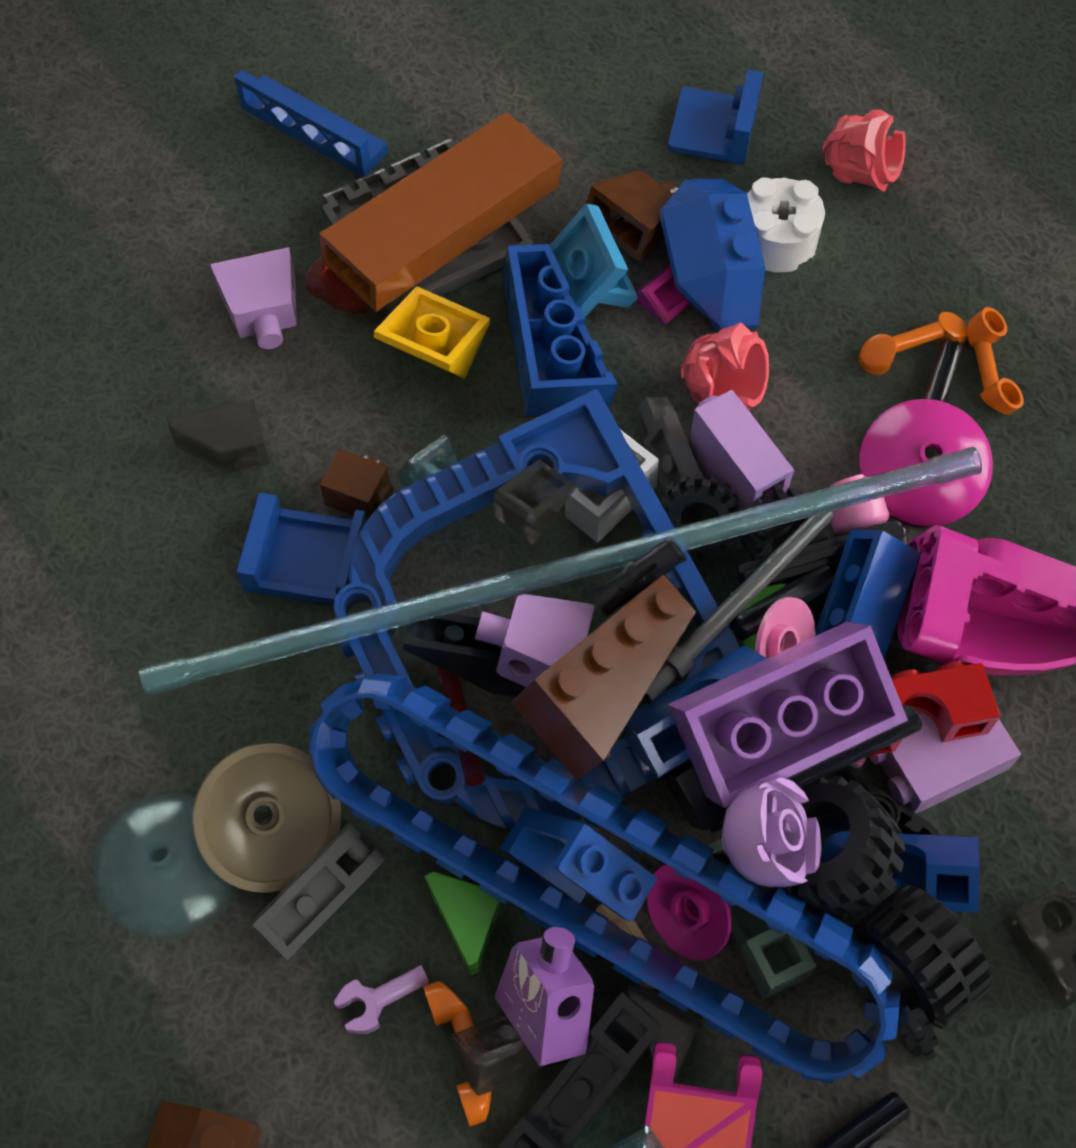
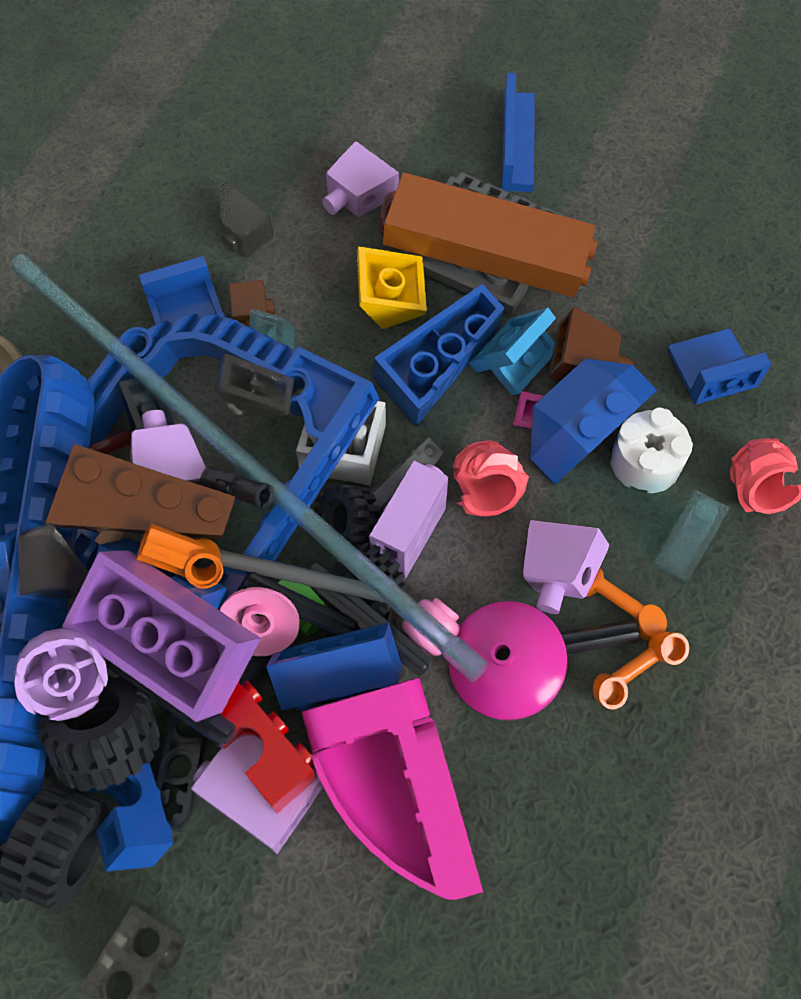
camera: 60 degrees right, 0 degrees up
(637, 790) = (48, 564): none -> clear smoke slope
(703, 656) = (178, 553): none -> orange piece
(857, 359) = (562, 561): none -> lavender torso
(886, 244) = (691, 536): none -> clear light blue slope

